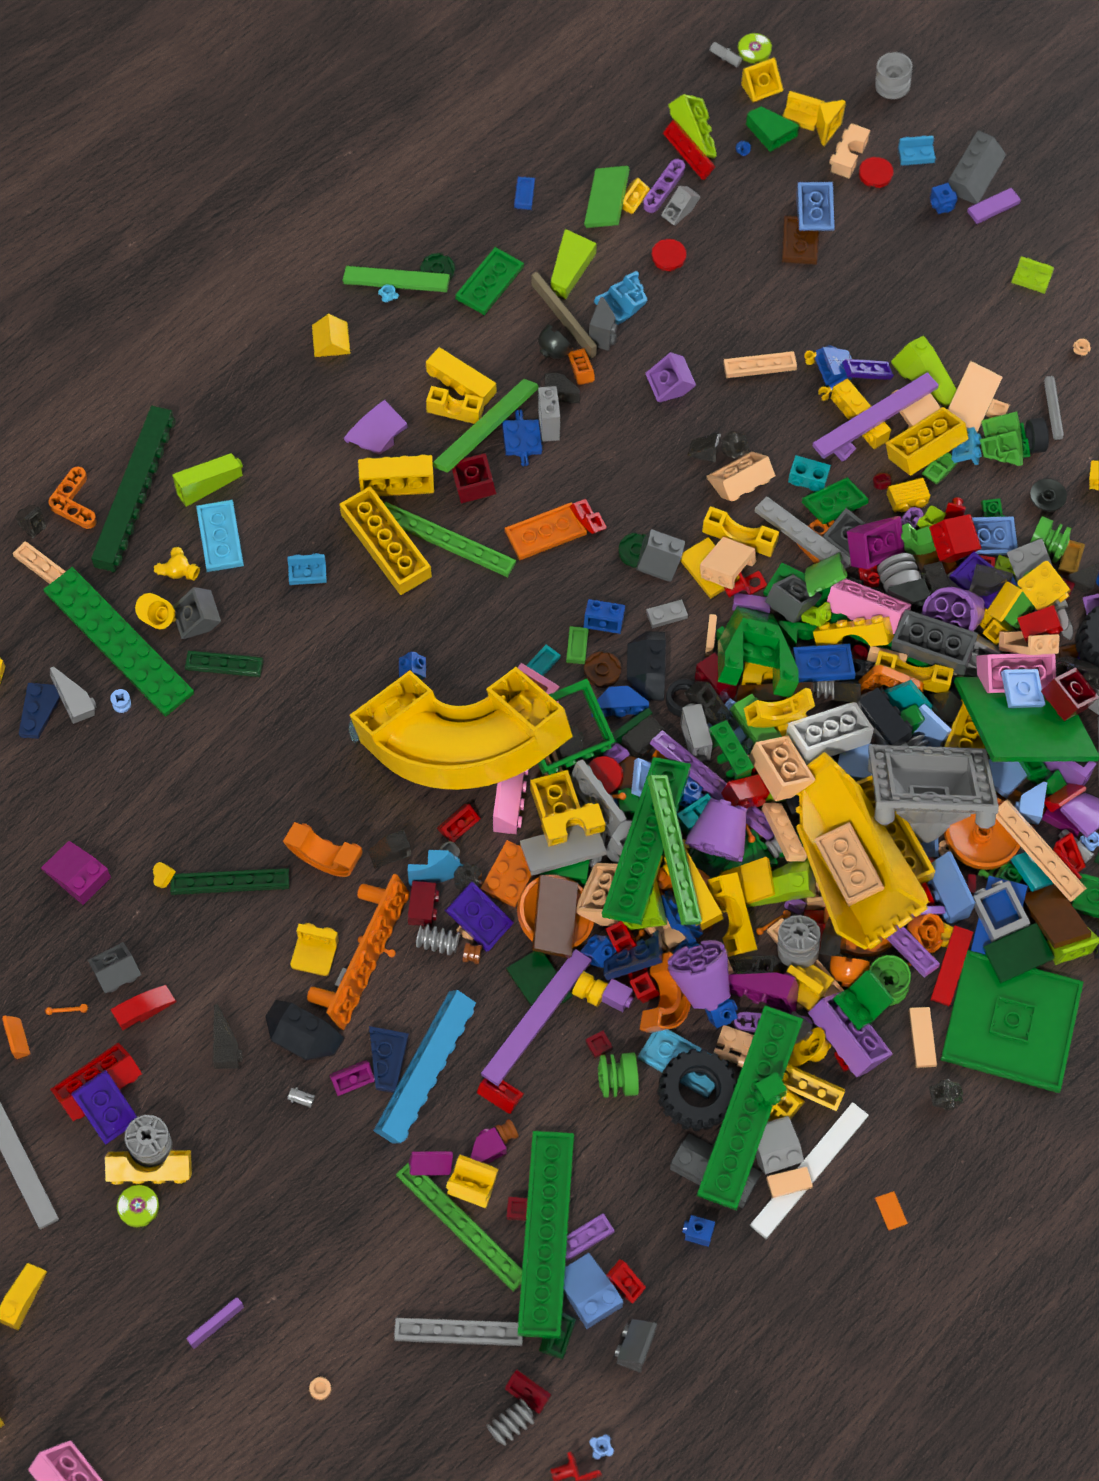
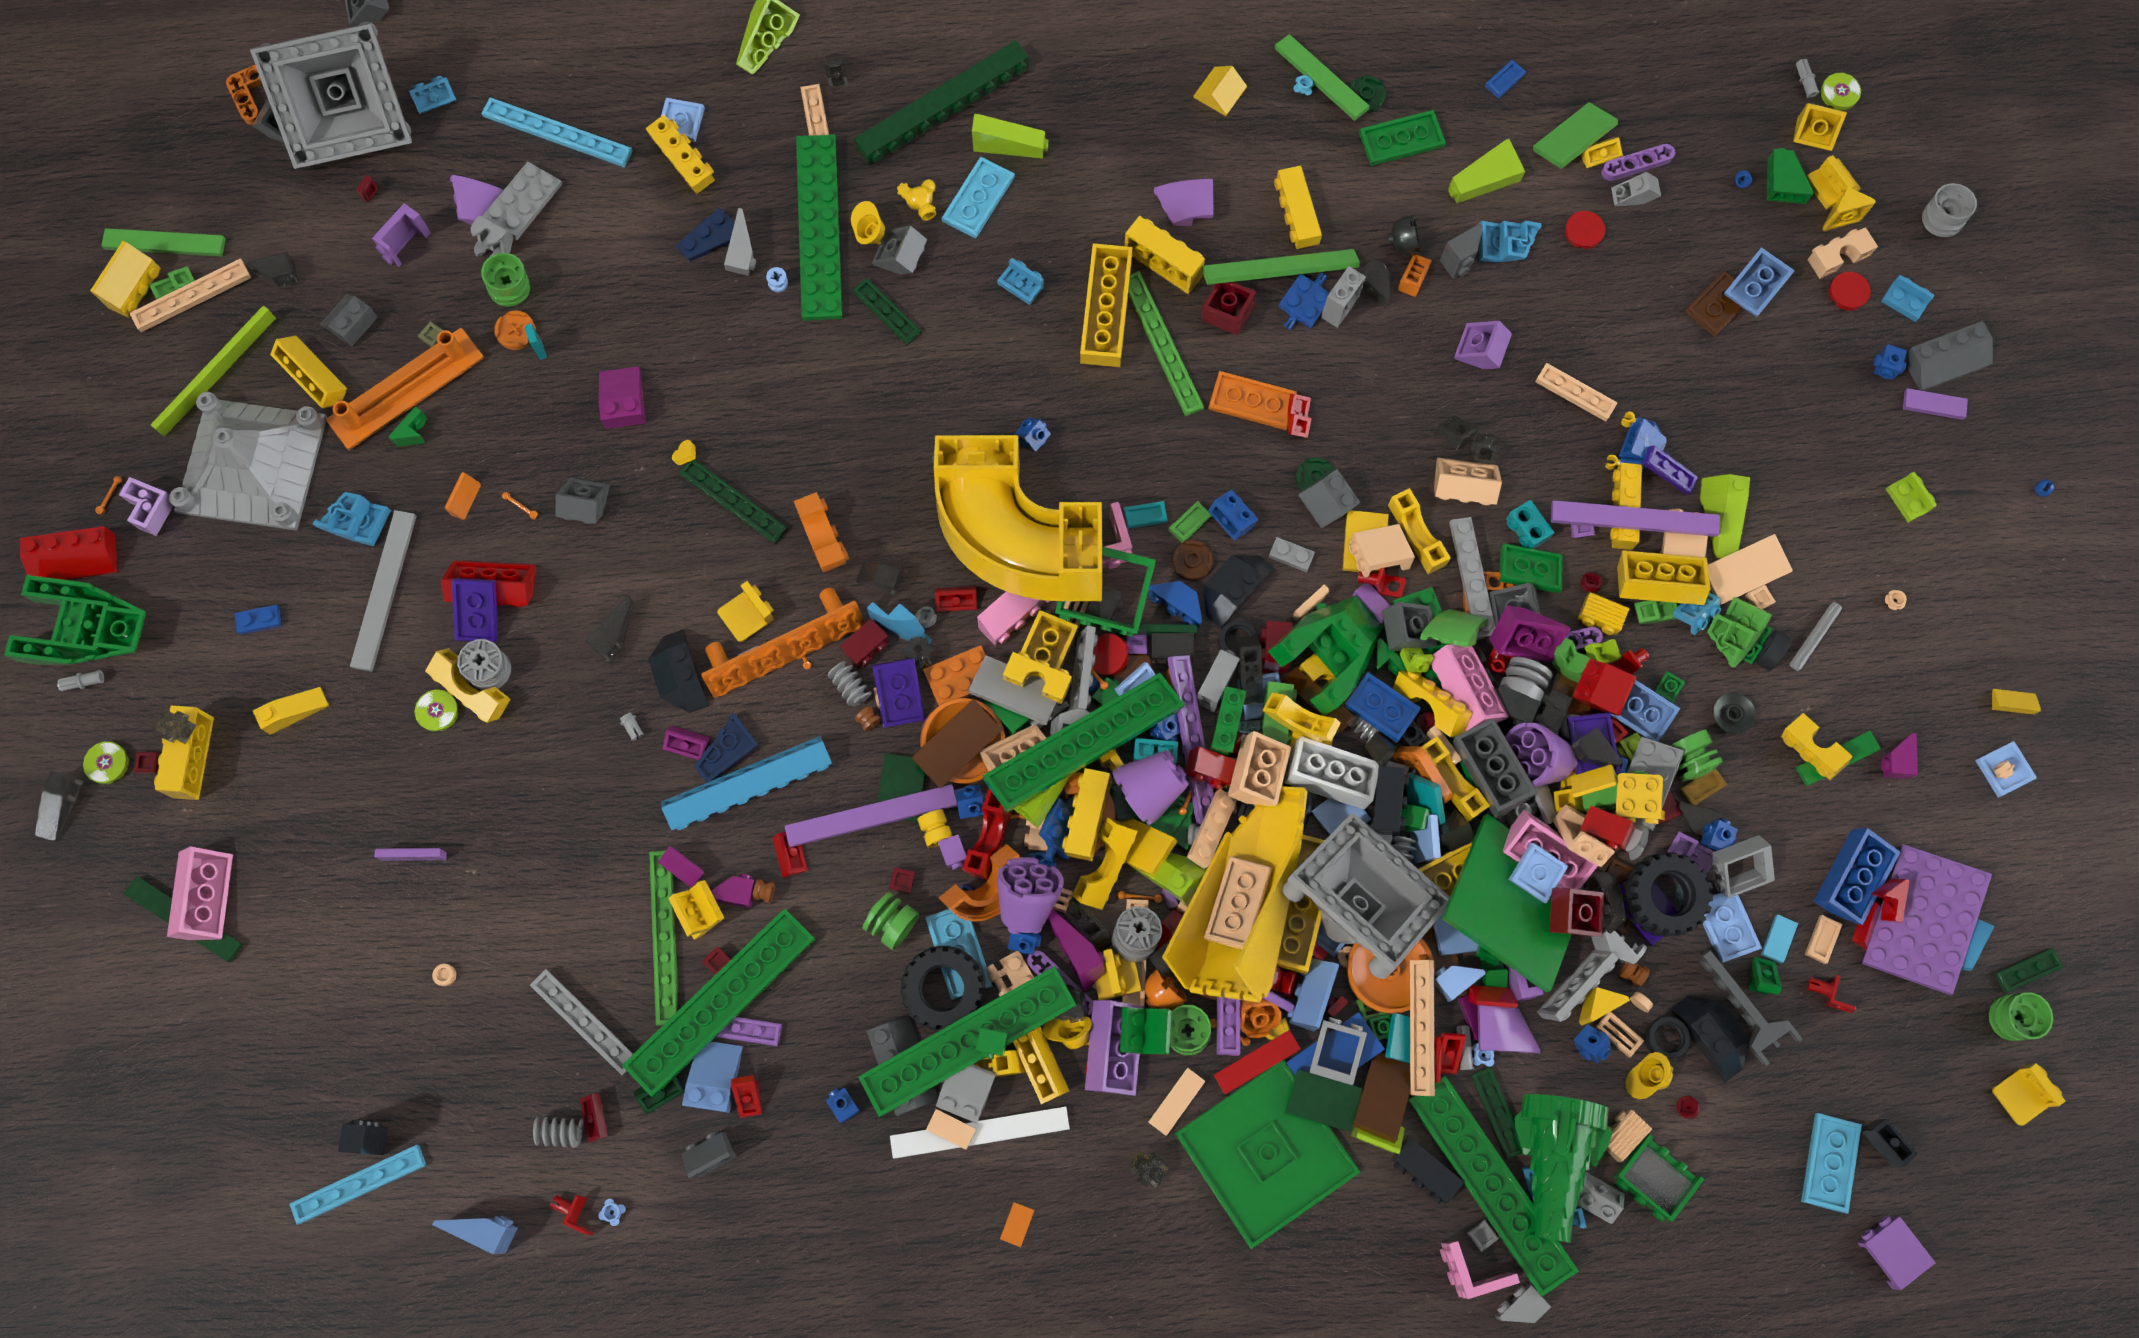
camera: 40 degrees right, 10 degrees up
(66, 499) = (882, 71): orange beam -> none
(142, 1006) = (575, 550): red slope -> none
(442, 404) = (1261, 218): yellow arch -> none
(564, 315) = (1439, 218): dark tan tile -> none
(644, 955) = (990, 835): dark blue wing -> none
(674, 850) = (1096, 769): bright green tile -> none
(689, 149) = (1690, 144): red tile -> none
(692, 117) = (1719, 116): lime wedge -> none

